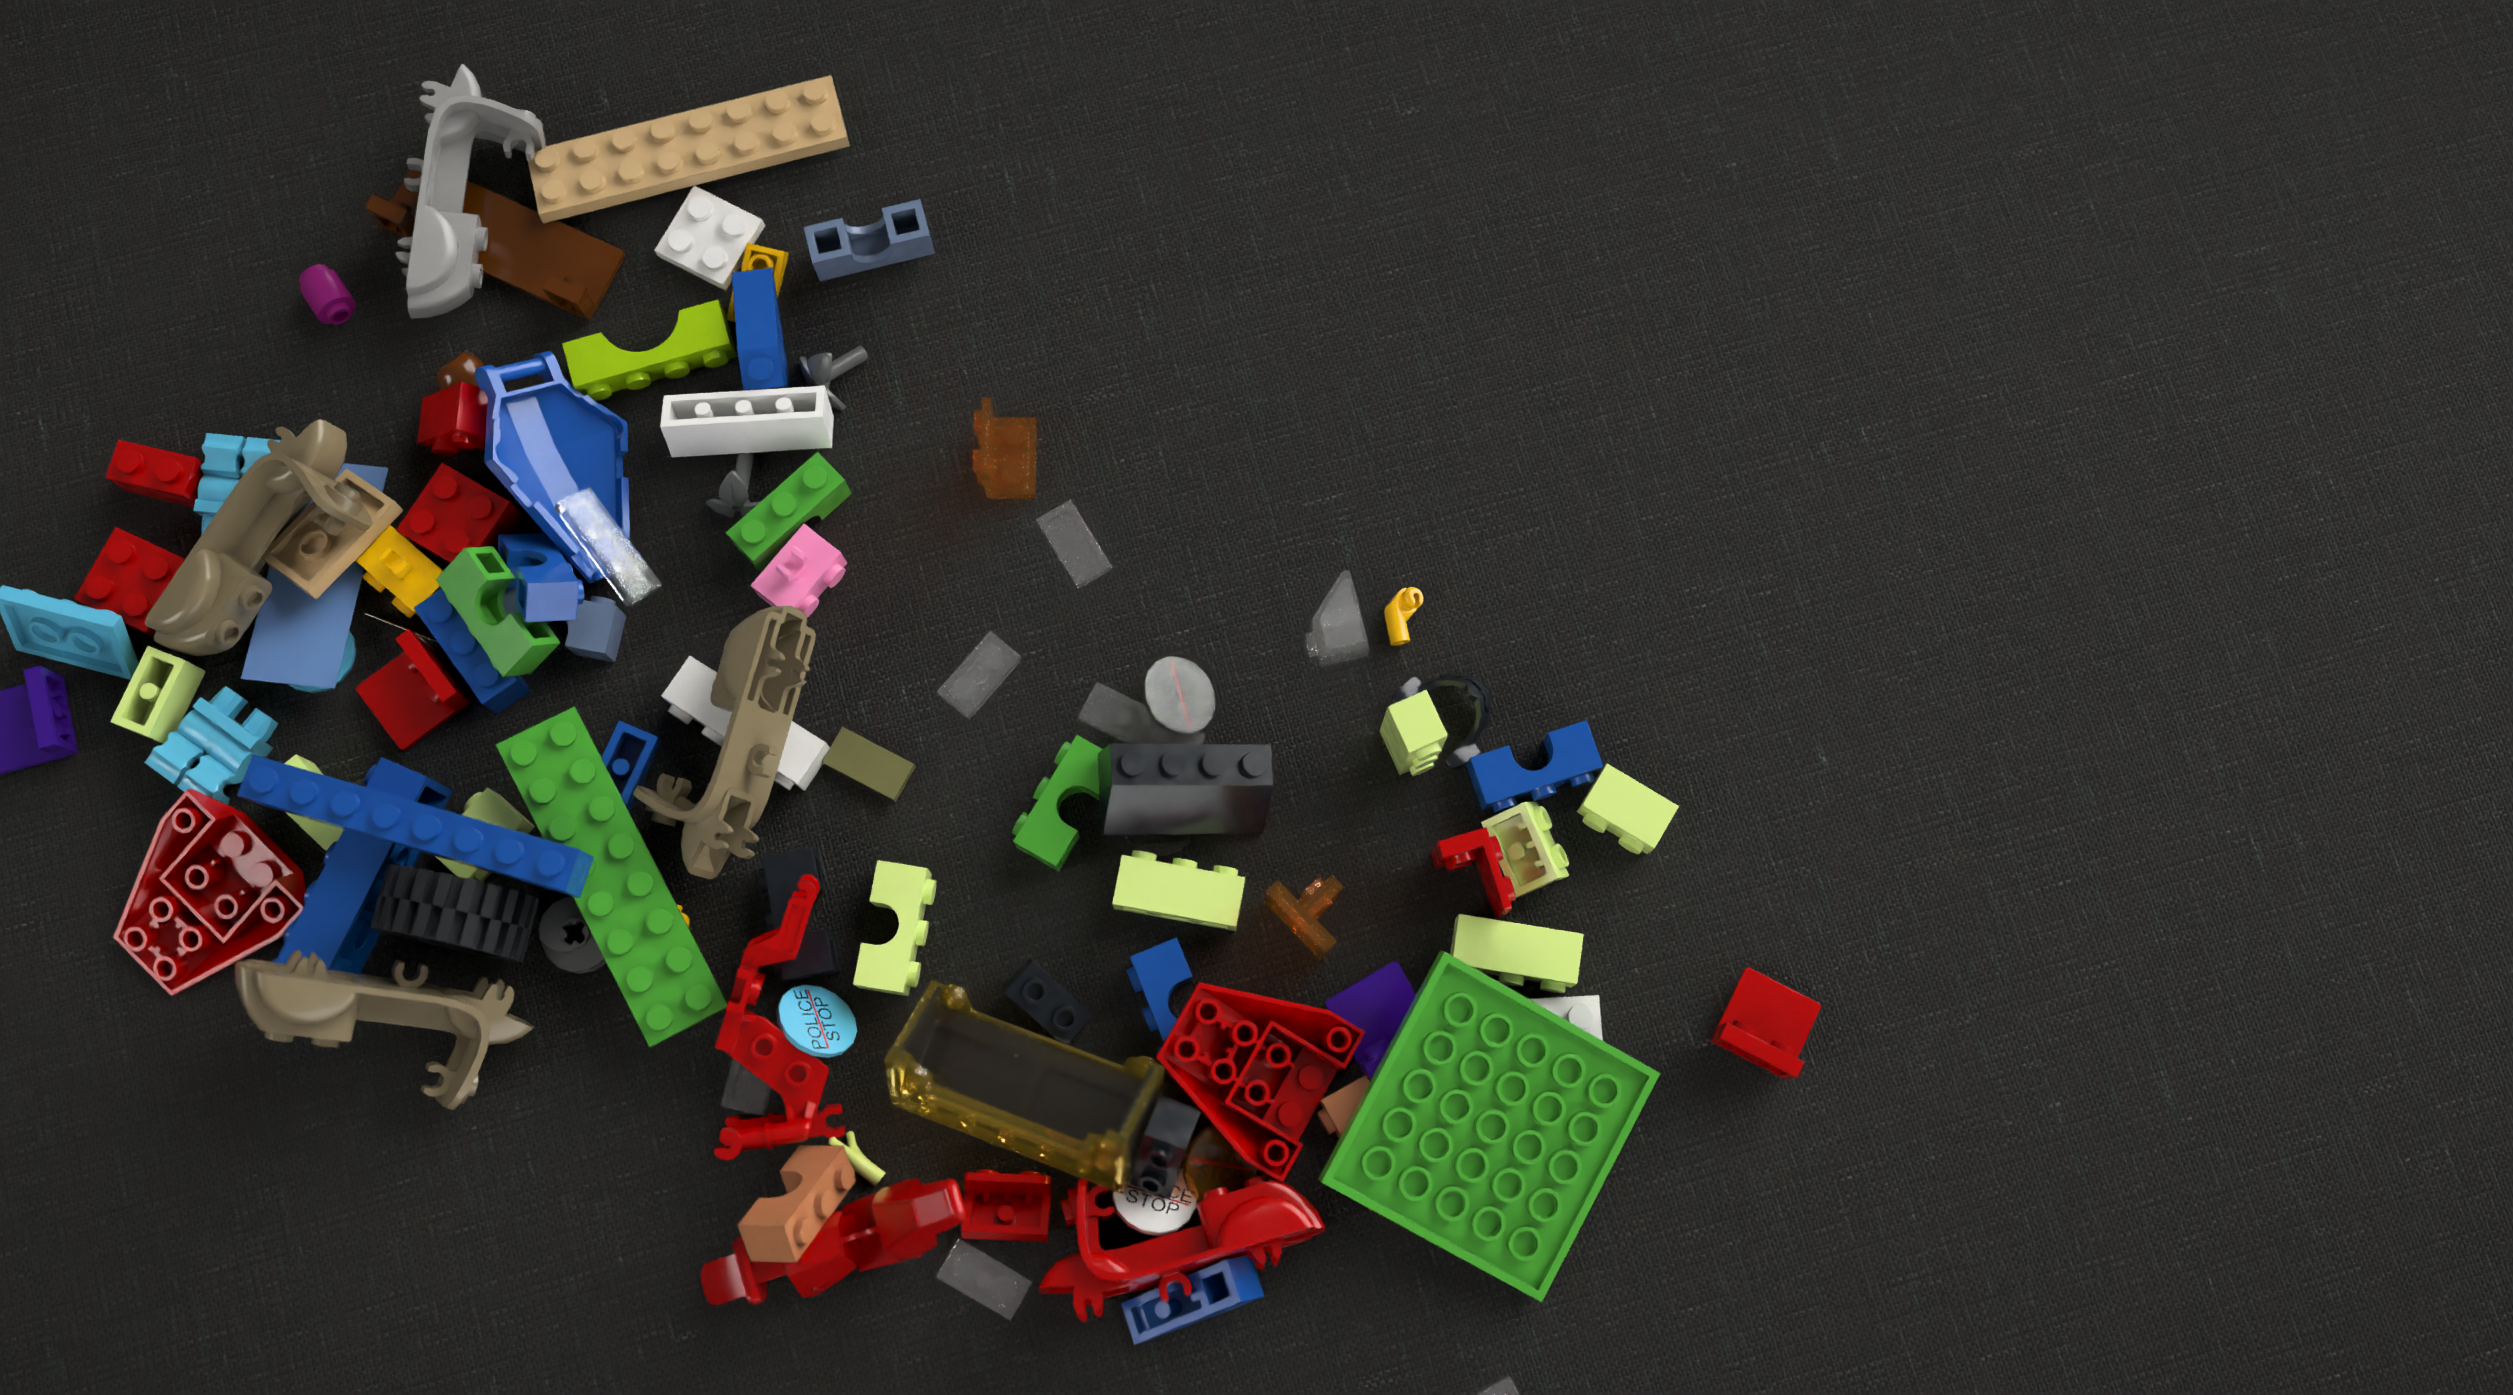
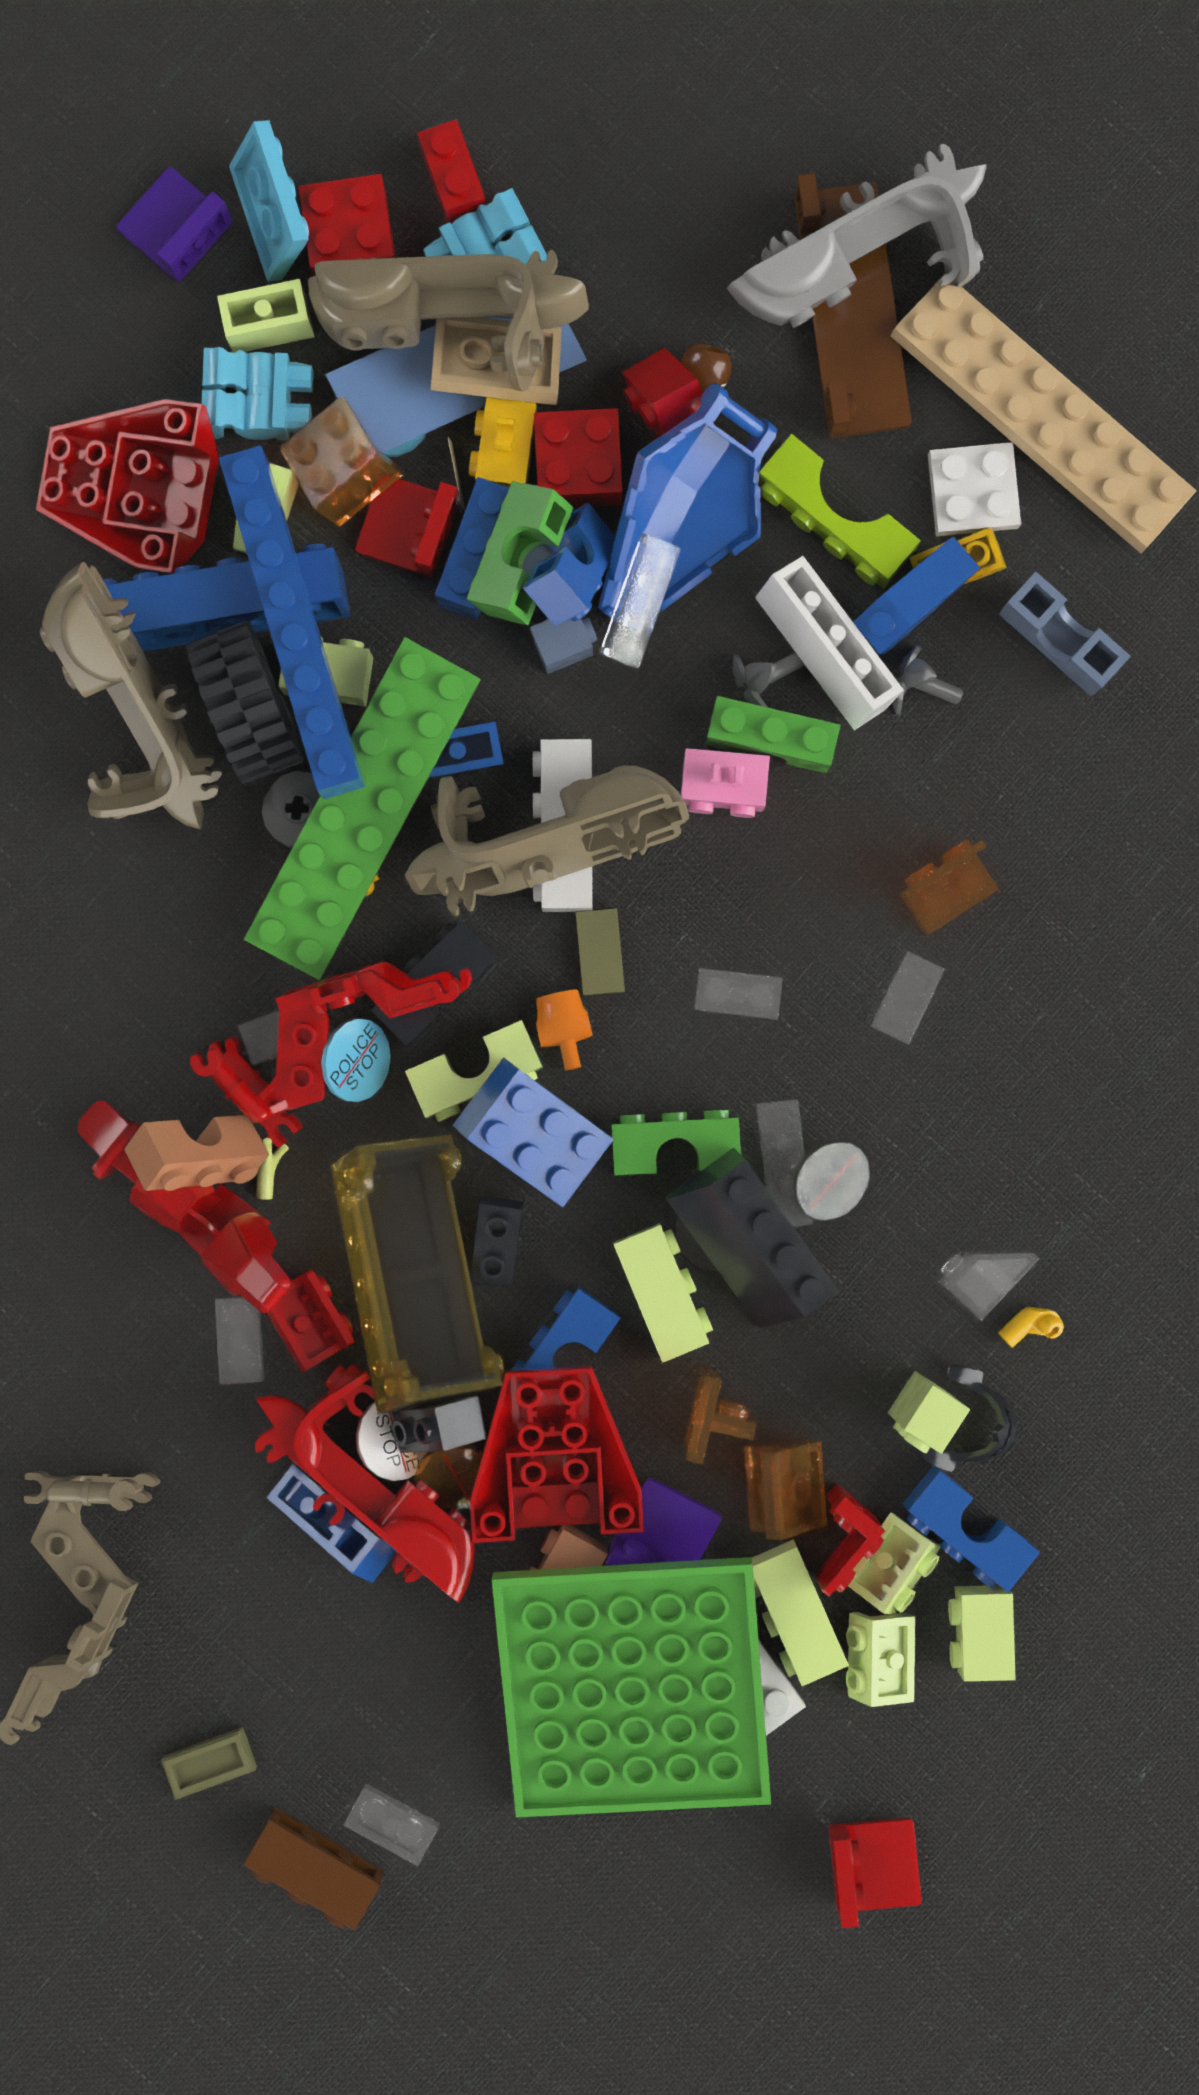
camera: 65 degrees right, 10 degrees up
(320, 714) = (338, 463): none -> clear orange bracket
(326, 294) = (701, 196): magenta brick -> none
(905, 830) = (563, 1023): none -> orange piece
(974, 908) = (532, 1132): none -> brick
(1405, 894) = (785, 1488): none -> clear orange bracket
(1596, 907) = (881, 1658): none -> yellowish green bracket

